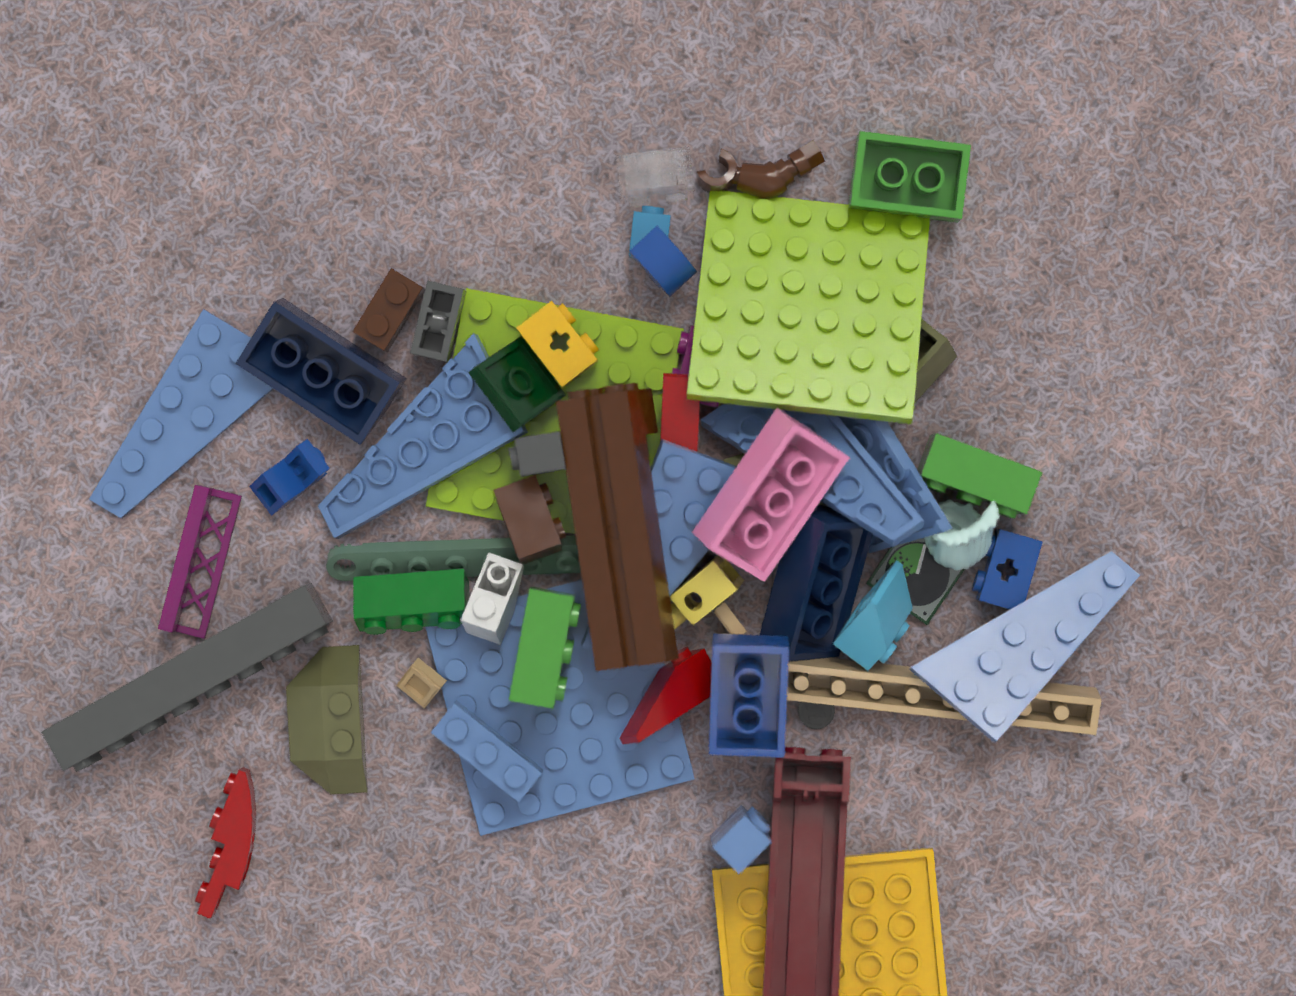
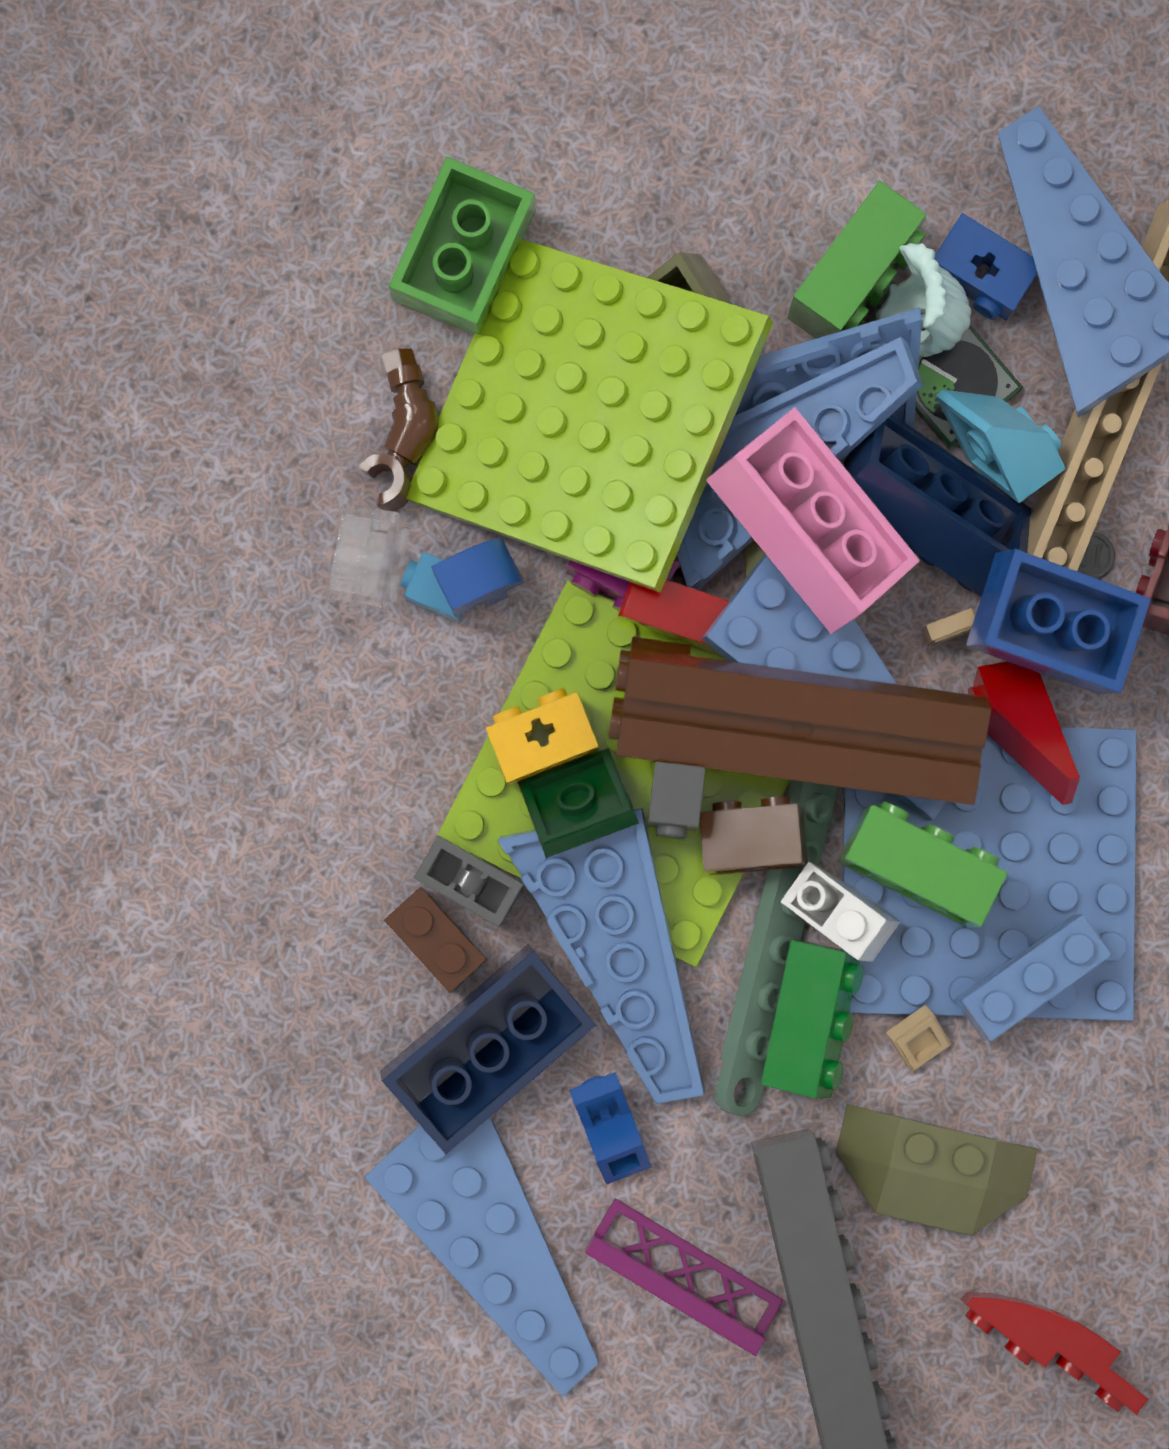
camera: 65 degrees left, 5 degrees down
(713, 583) = (897, 631): light yellow torso -> none

